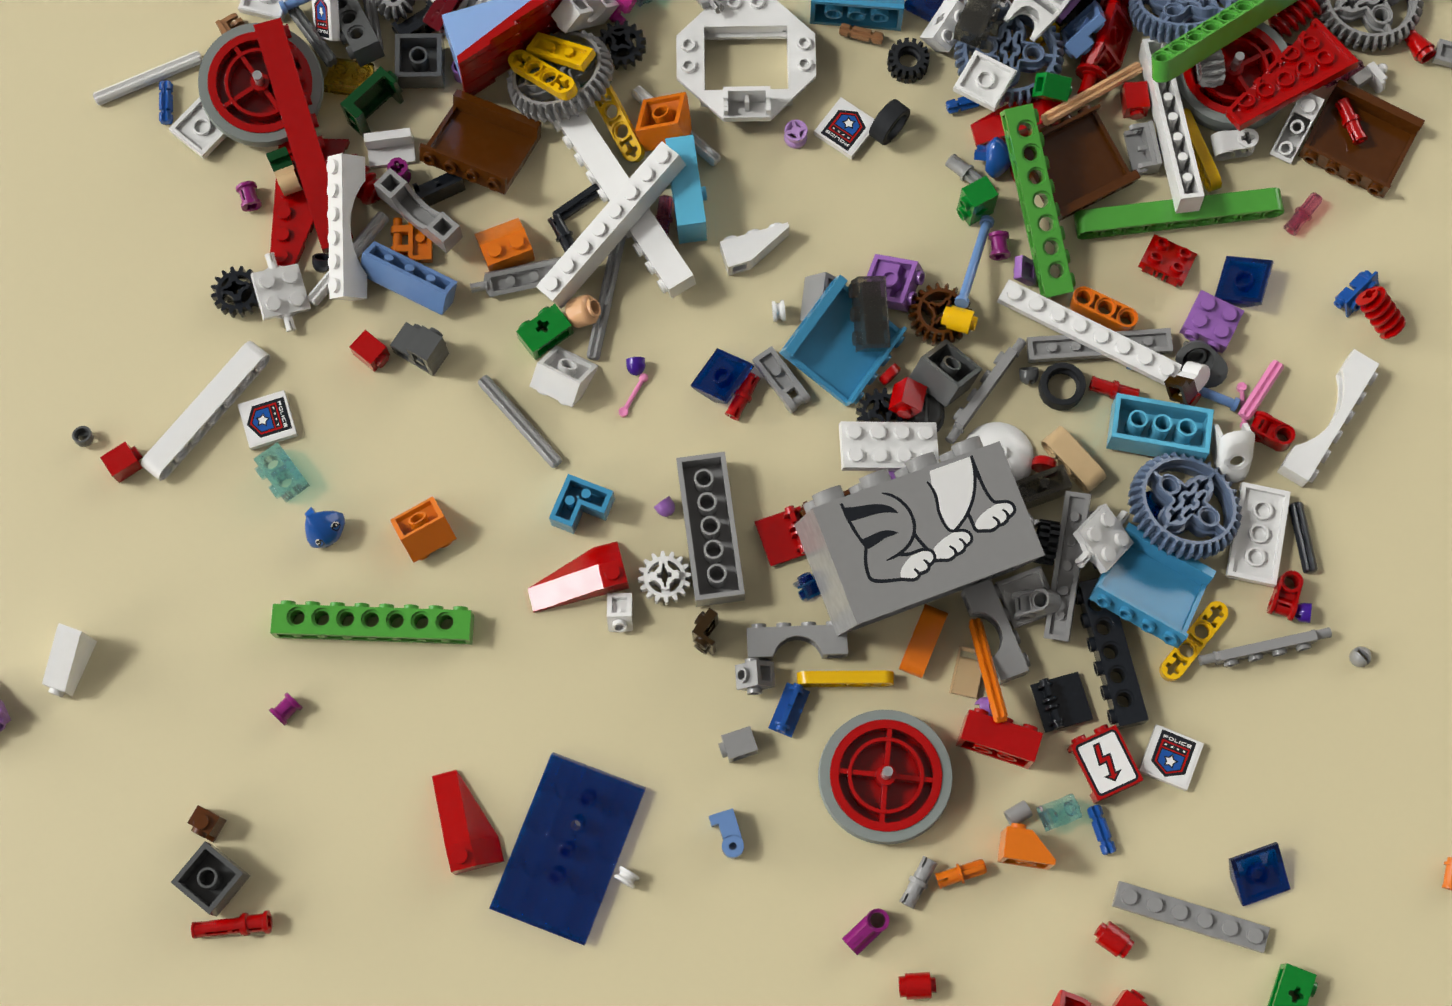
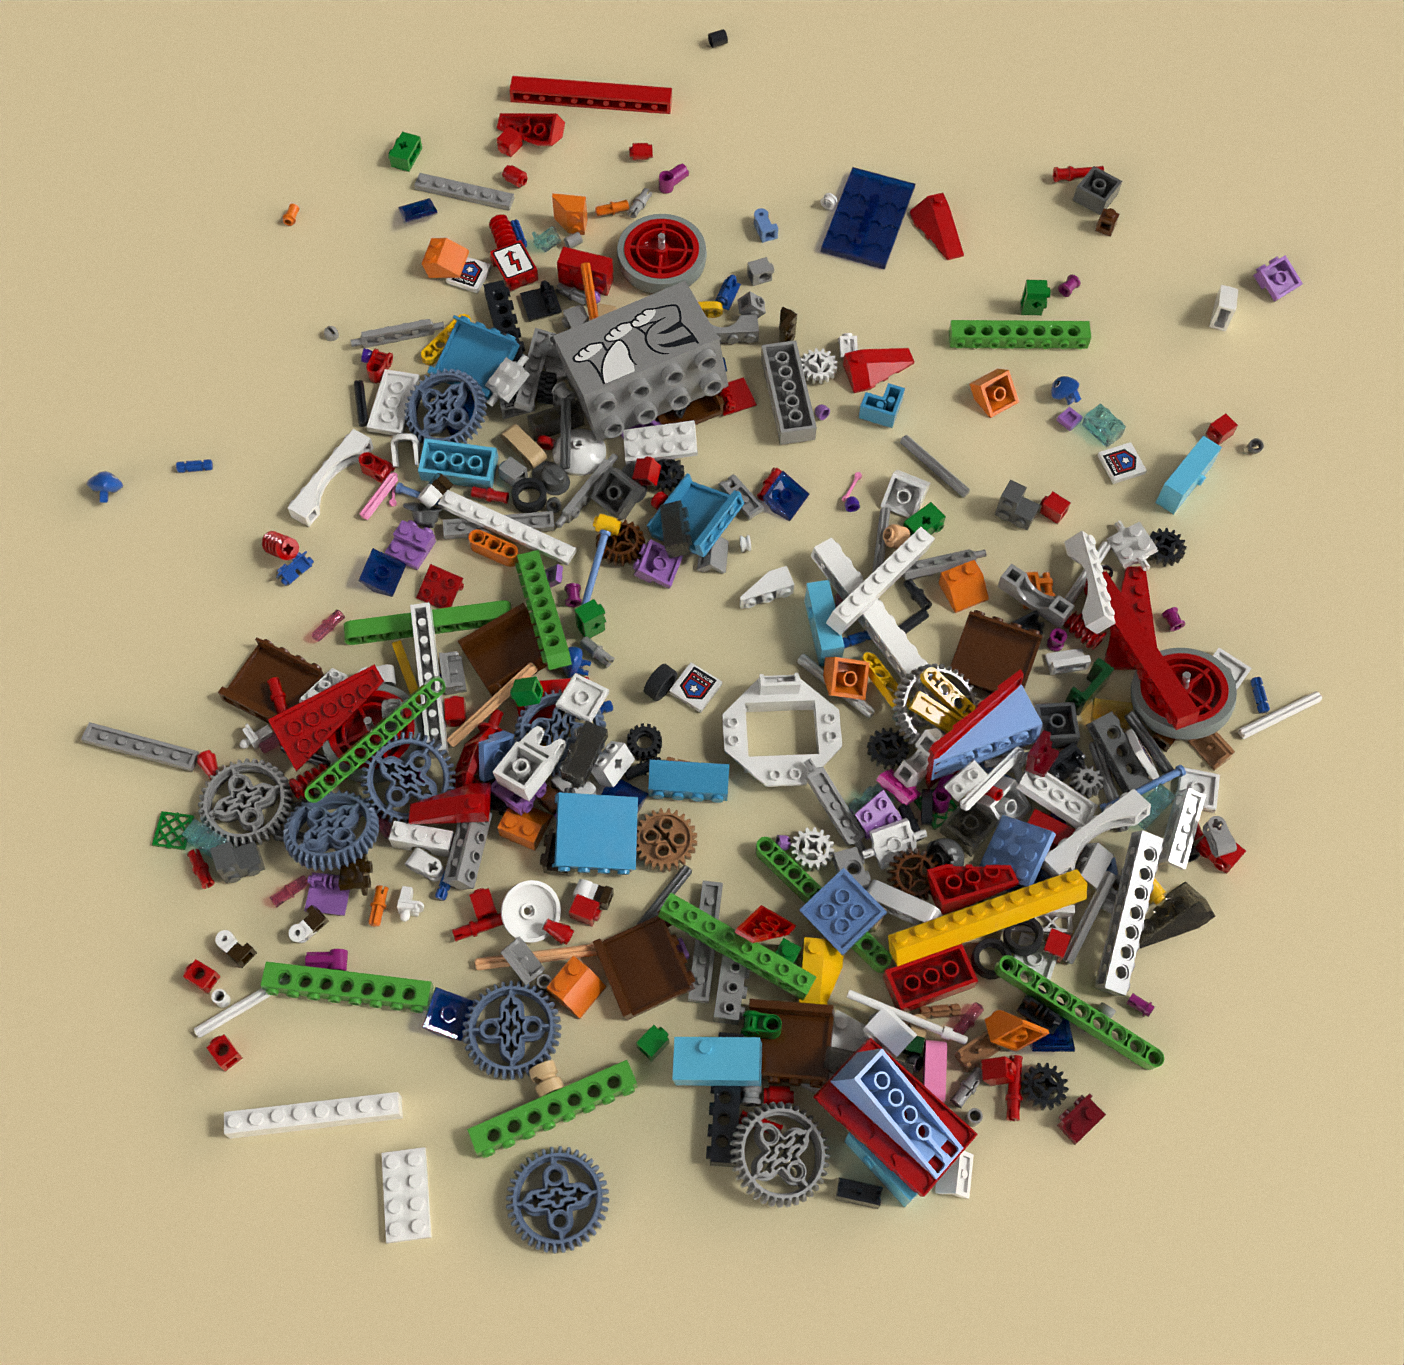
camera: 175 degrees right, 10 degrees down
(182, 381) = (1188, 475): none -> medium azure brick
(205, 410) = (1169, 463): white beam -> none
(284, 171) = (1151, 626): leg -> none
(326, 486) = (1069, 418): none -> medium lavender plate
(341, 675) = (1034, 297): none -> green brick
(408, 278) = (1035, 555): medium blue brick -> none
(798, 129) = (737, 674): lavender wheel -> none
(909, 30) = (639, 769): none -> black axle
(1018, 454) = (565, 433): none -> dark grey axle
(1019, 714) = (571, 293): none -> flat silver axle
(1032, 417) = (553, 477): none -> dark grey piece
(1086, 419) = (512, 471): none -> light grey brick
(1124, 820) = (502, 230): none -> red piece
(1209, 772) = (444, 258): none -> orange slope

